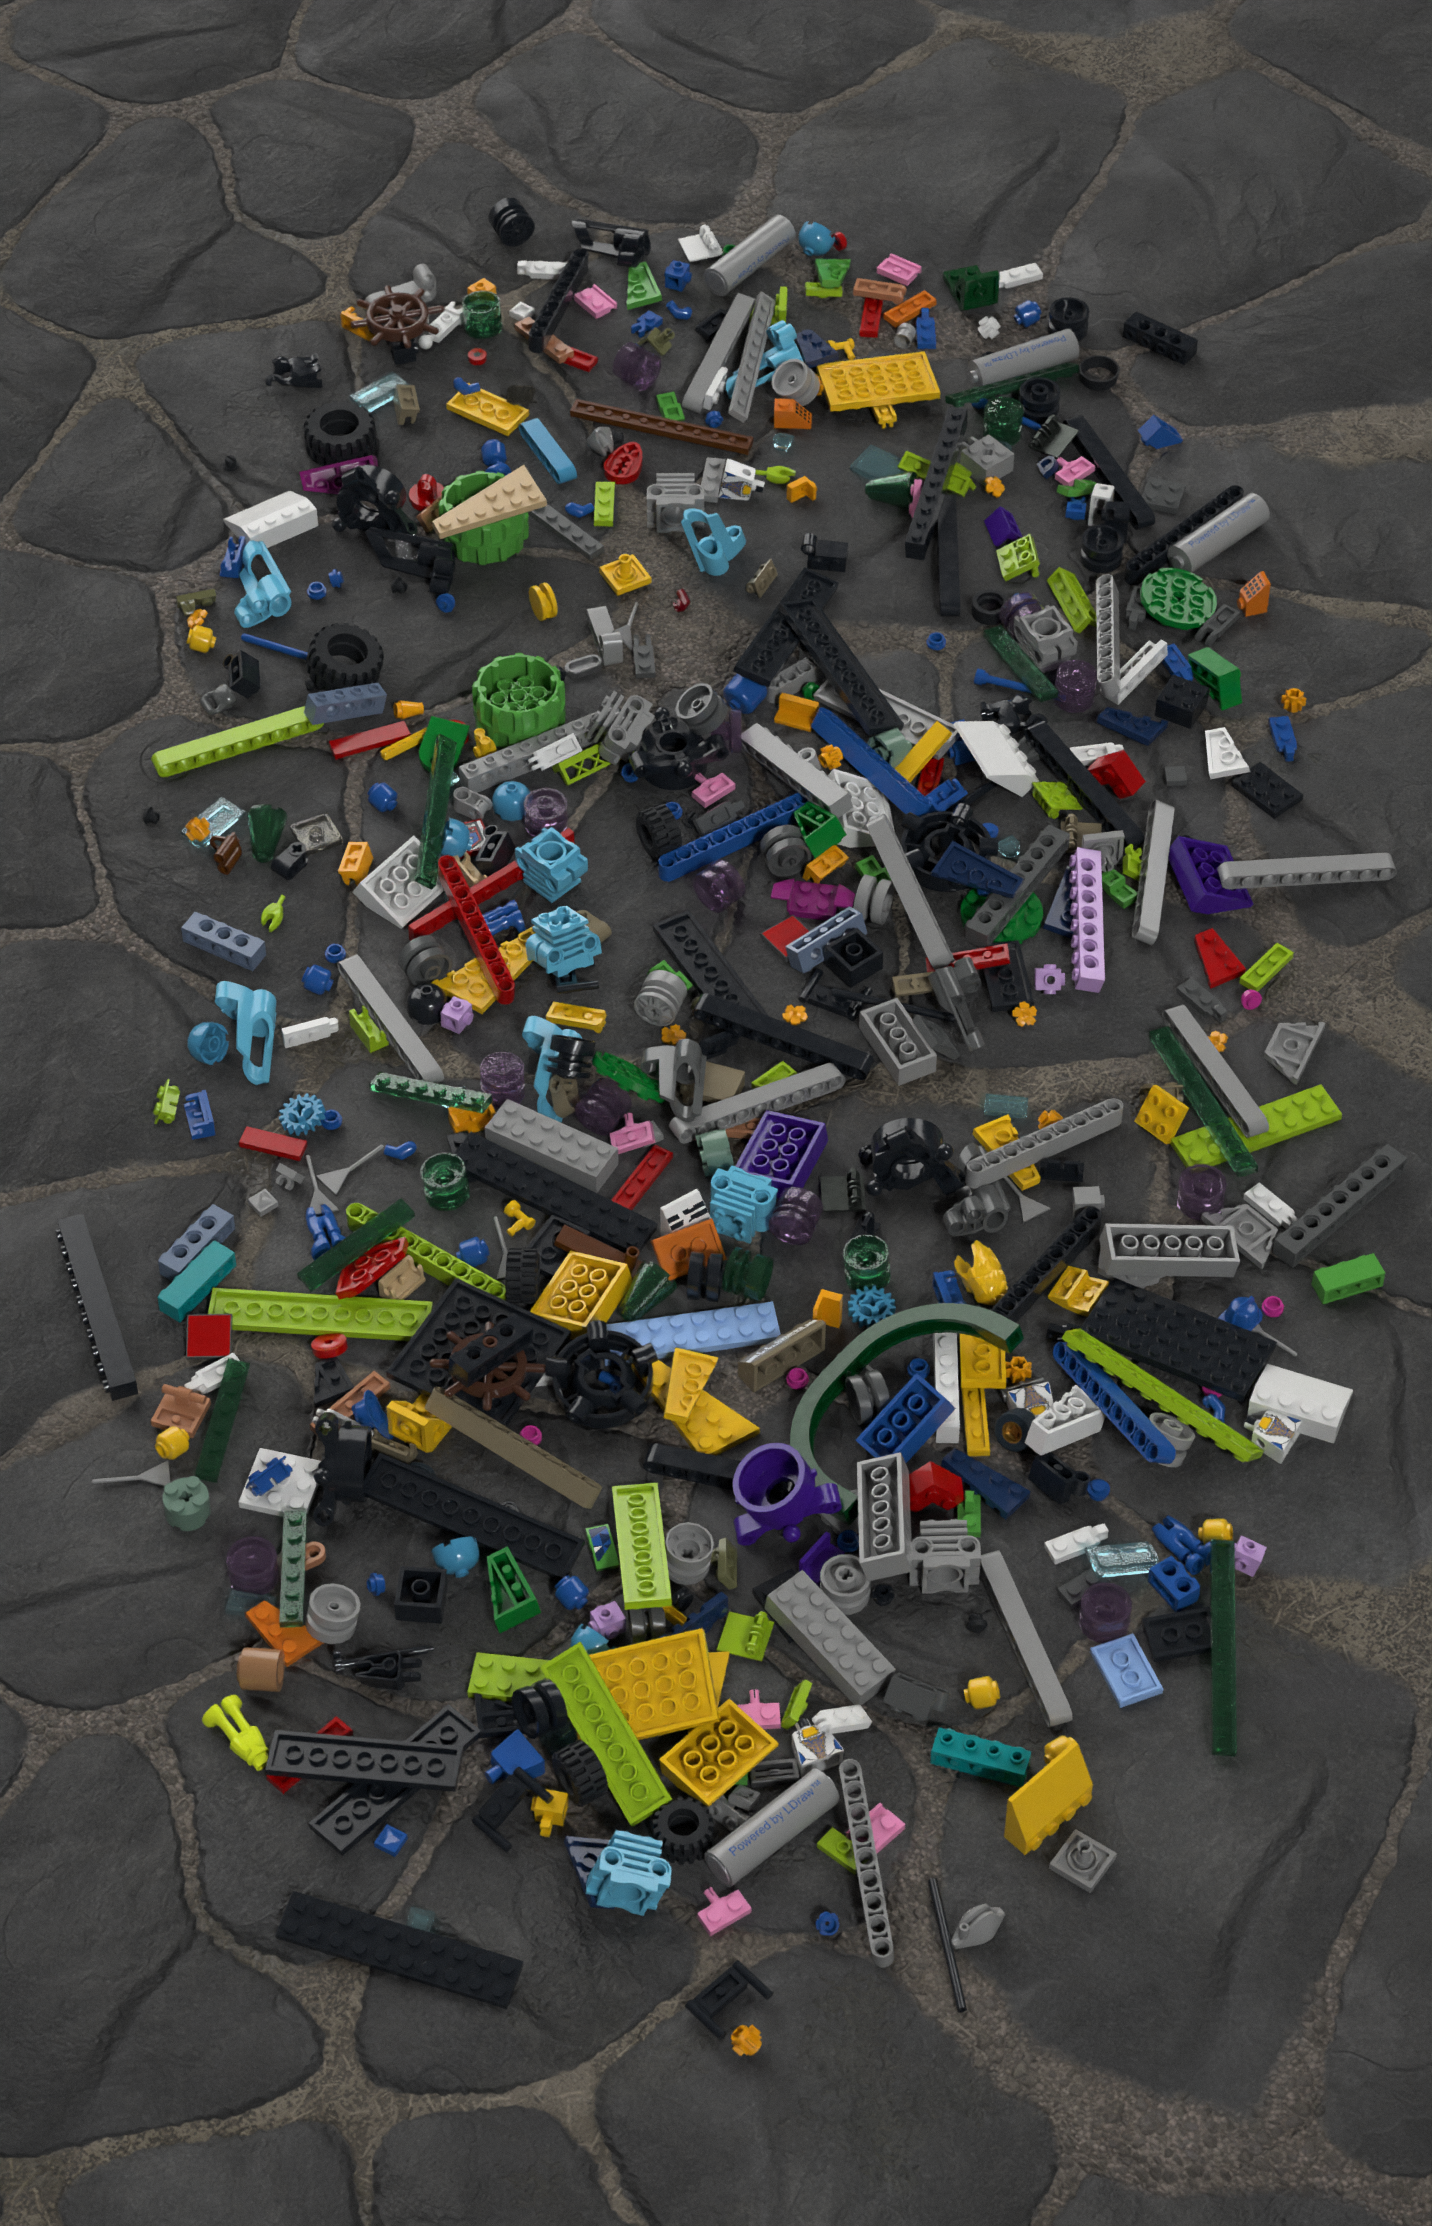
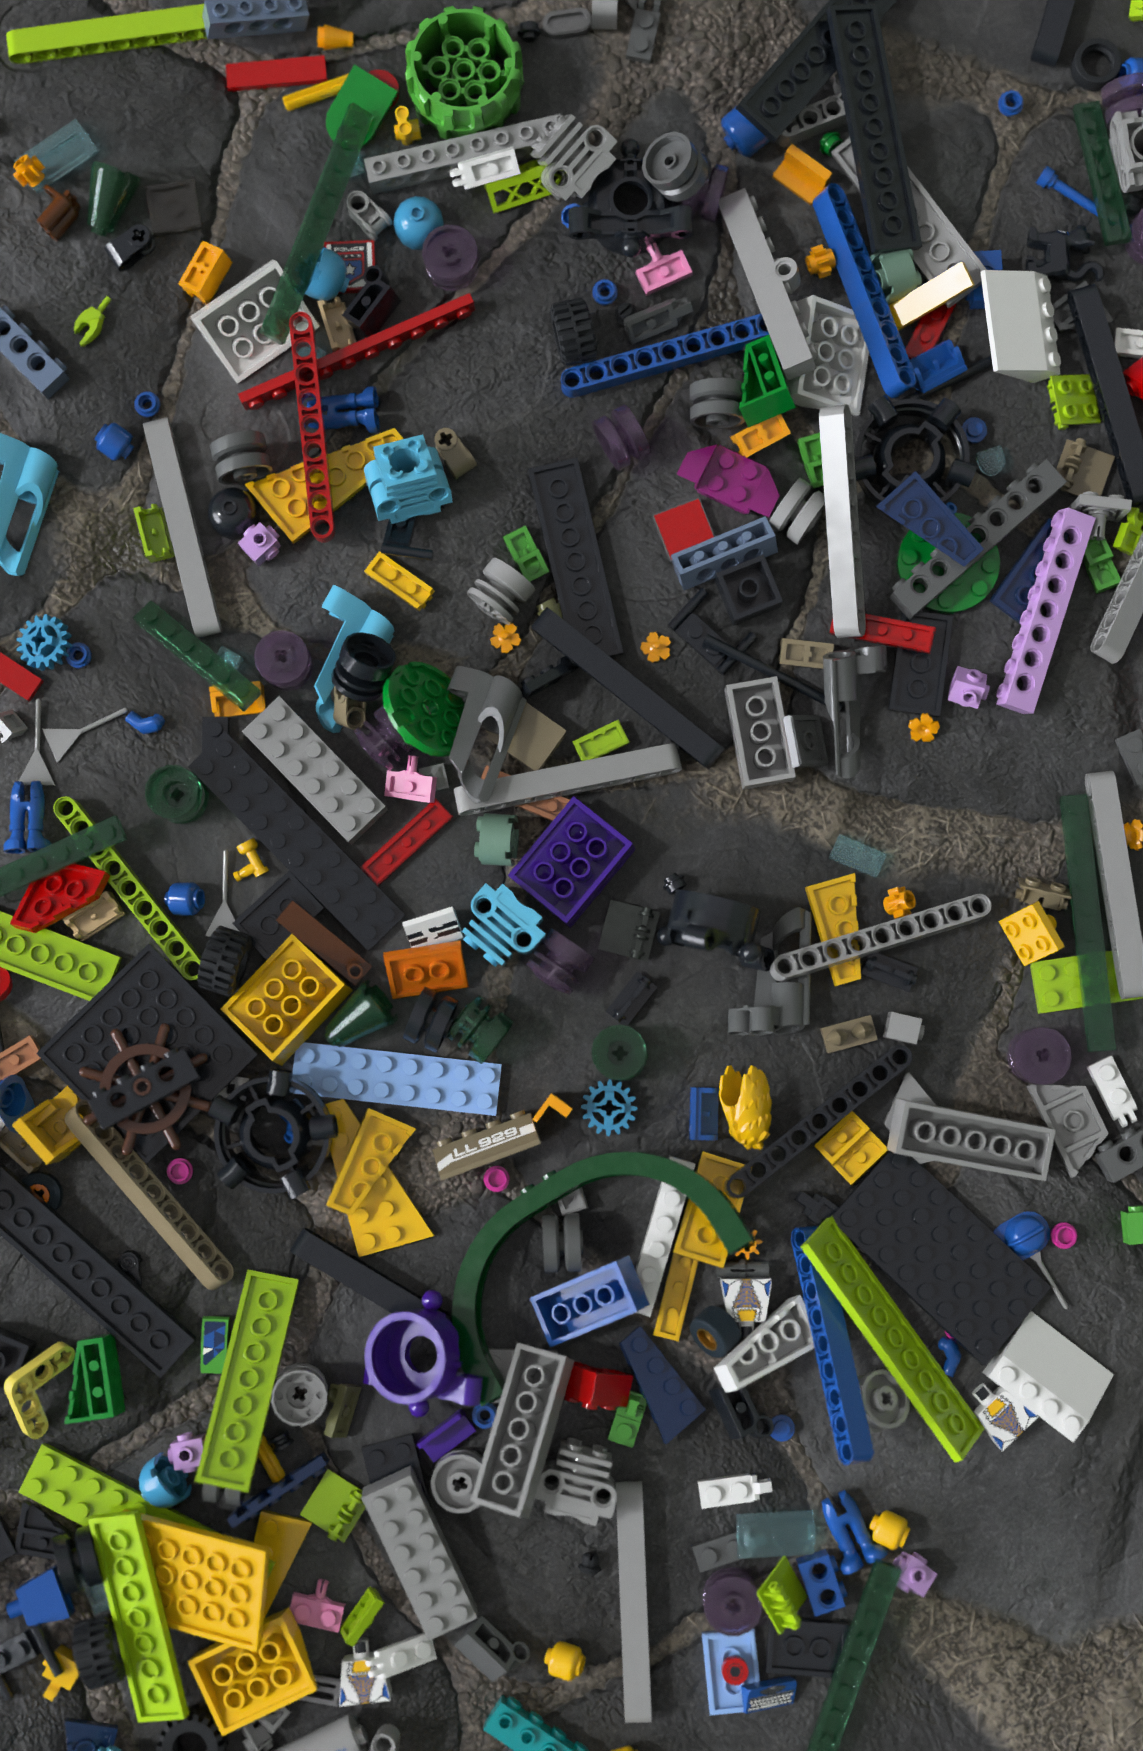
camera: 20 degrees right, 35 degrees up
(309, 1031) = (87, 518): white hinge -> none
(382, 797) = (265, 175): blue head -> none
(448, 1596) = (29, 1383): none -> light yellow beam
(457, 1556) = (50, 1317): dark azure cylinder -> none
(551, 864) = (428, 332): medium azure piece -> none
(571, 1592) = (163, 1399): blue head -> none
(918, 1364) = (639, 1212): blue plate -> none
(1028, 1206) = (836, 1009): light grey piece -> none
(1045, 1219) = (848, 1034): none -> dark tan tile
(1127, 1661) = (734, 1670): none -> red tile
(1150, 1599) = (783, 1596): none -> lime hinge
(1163, 1670) = (768, 1694): none -> slope

